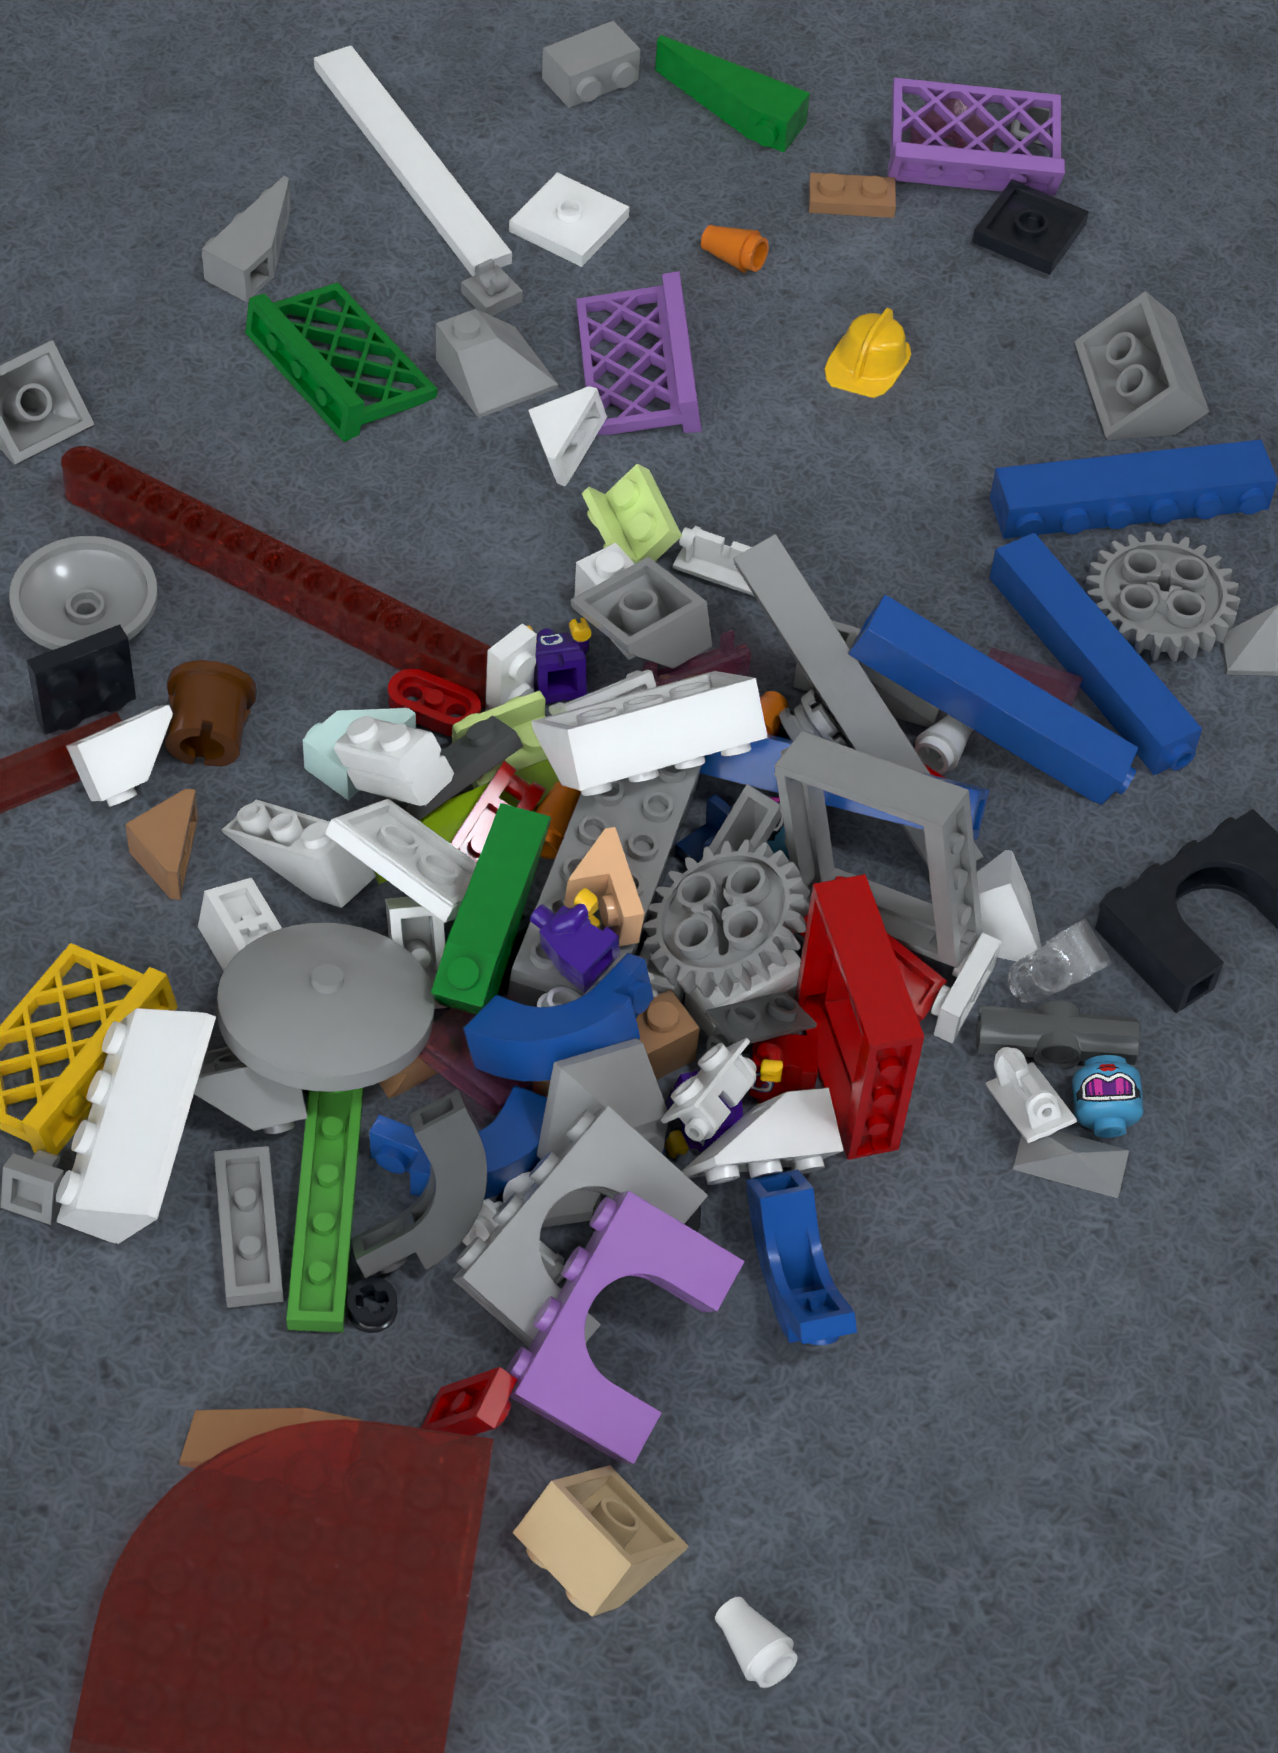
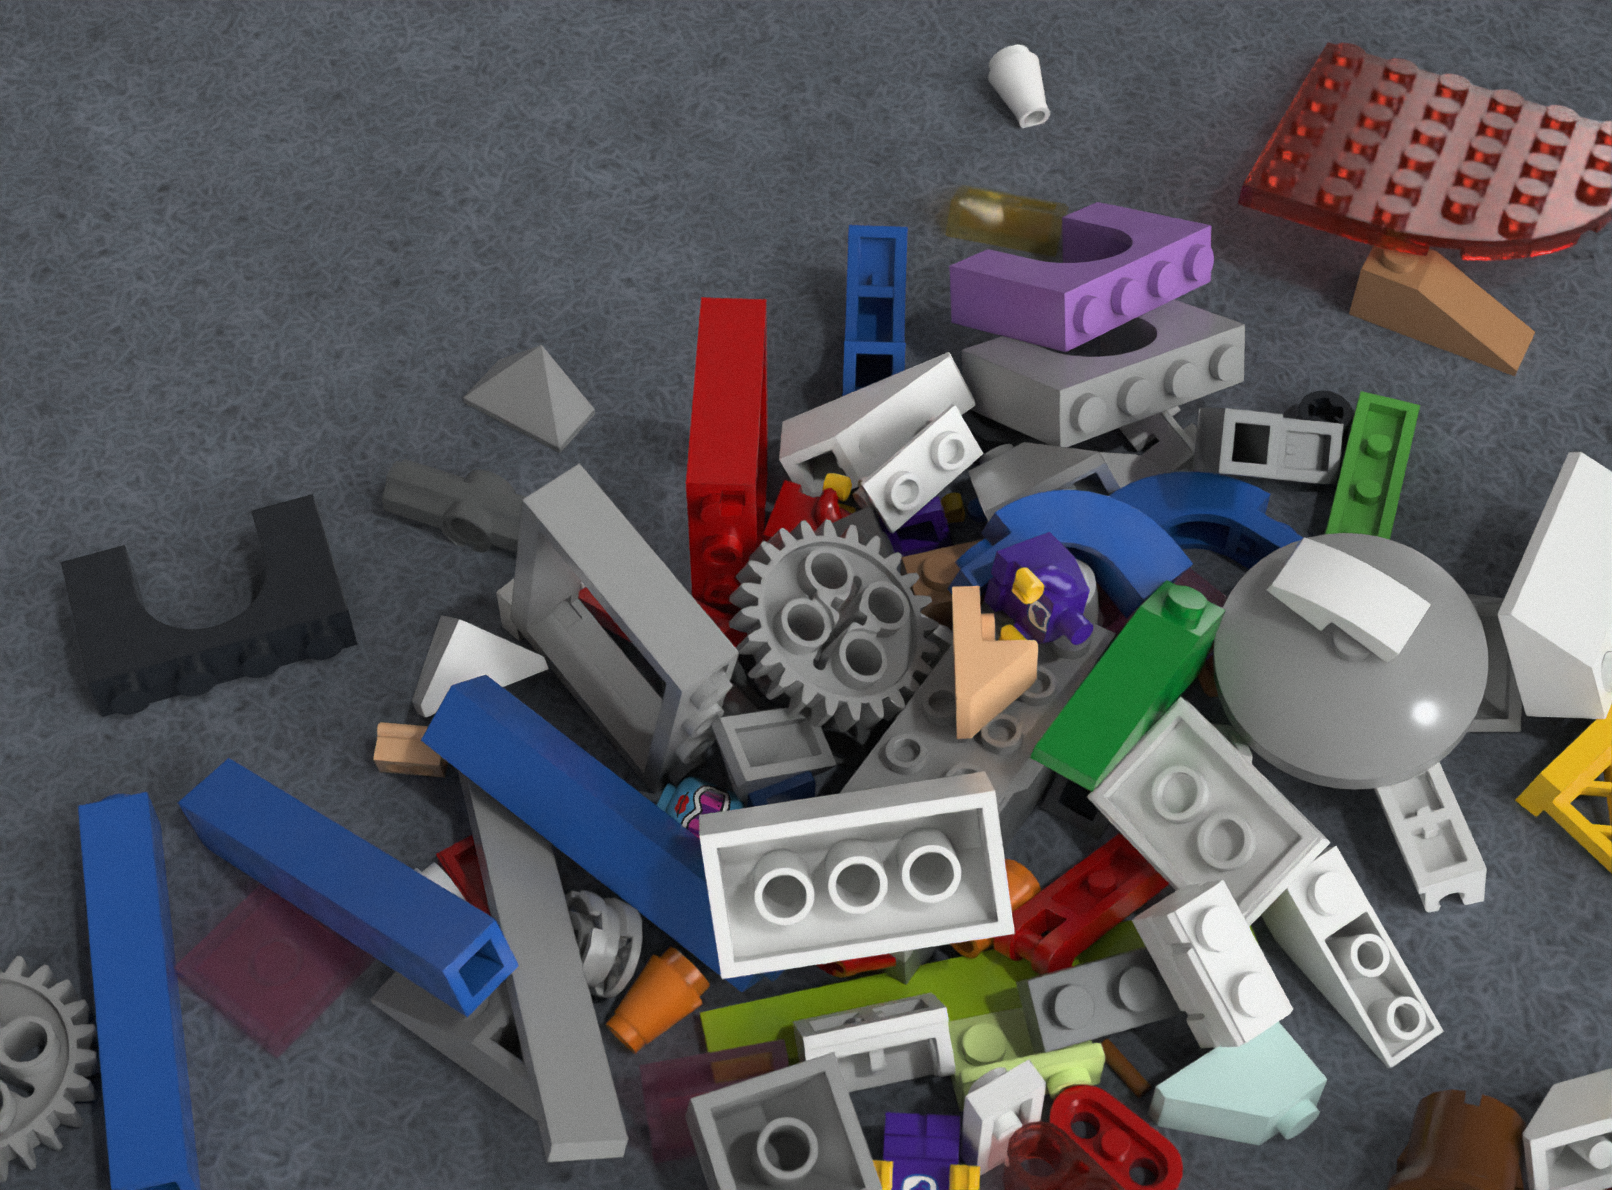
camera: 160 degrees left, 0 degrees up
(164, 840) = (1531, 997): medium nougat slope -> none
(248, 1227) = (1453, 507): light grey plate -> none
(346, 990) = (1356, 597): none -> white slope
(472, 1404) = (1250, 272): red plate -> none
(597, 1539) = (1140, 165): tan slope -> none
(720, 1476) = (1006, 220): none -> clear yellow slope
(1014, 837) = (403, 752): none -> light nougat piece
(1027, 1096) = (547, 431): white hinge -> none
(1061, 962) = (438, 573): clear piece -> none
(1107, 1095) = (461, 429): dark azure head -> none

